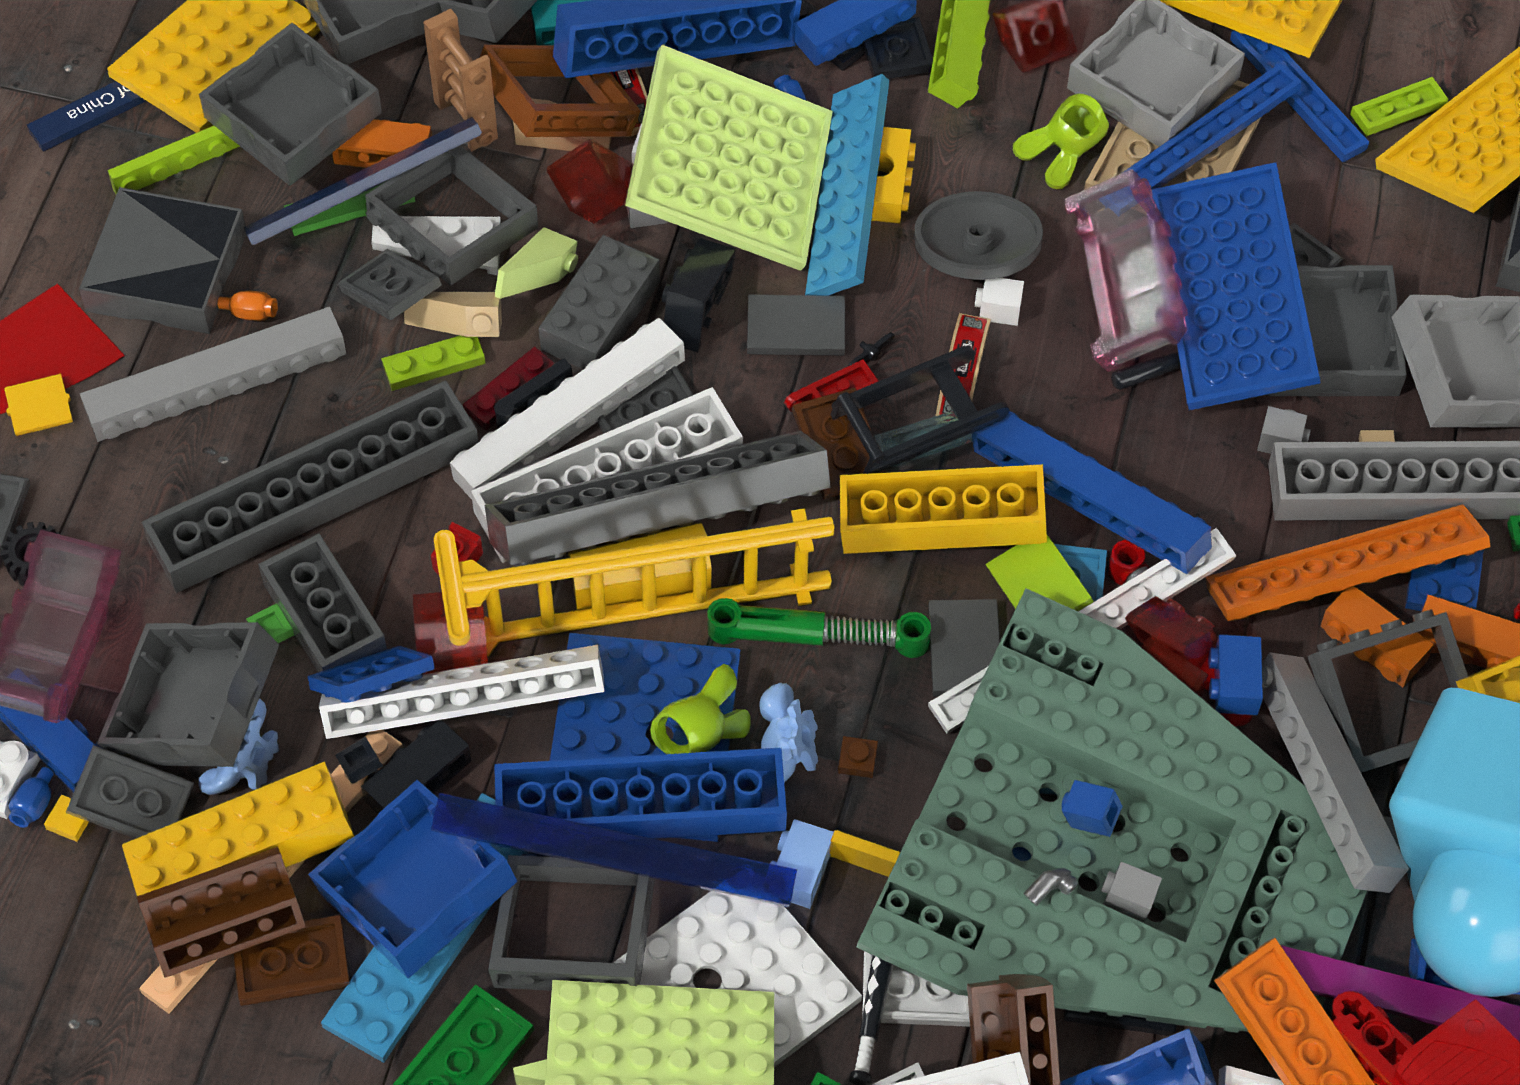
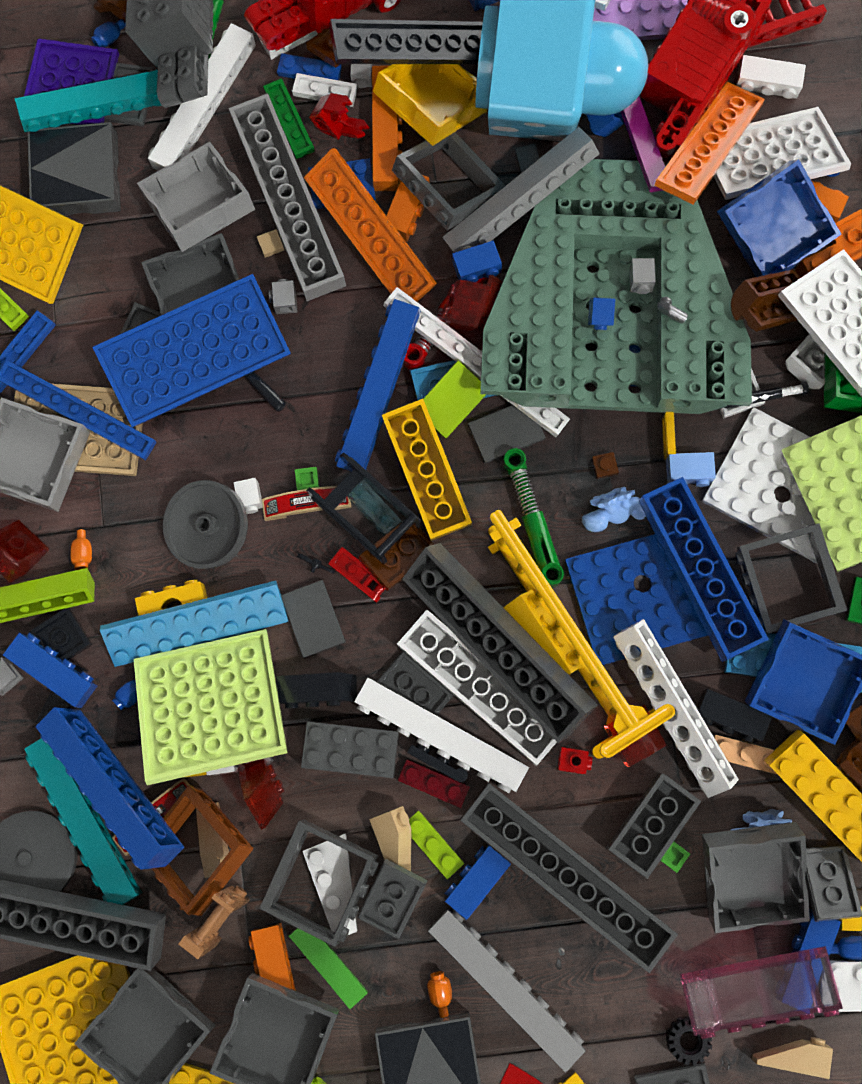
camera: 105 degrees left, 20 degrees up
(356, 380) = (476, 881): none -> blue brick
(358, 760) = (748, 750): black plate -> none
(362, 181) = (319, 956): tile -> none
(371, 673) = (692, 768): blue plate -> none
(537, 264) = (335, 801): yellowish green slope -> none
(614, 850) = (752, 568): clear blue plate -> none
(702, 717) = (638, 555): lime piece -> none
(995, 376) = (306, 478): none -> bright green plate
(1004, 100) = (81, 551): none -> orange plant
(1074, 129) = (94, 494): lime piece -> none
(1129, 269) = (209, 414): windscreen -> none

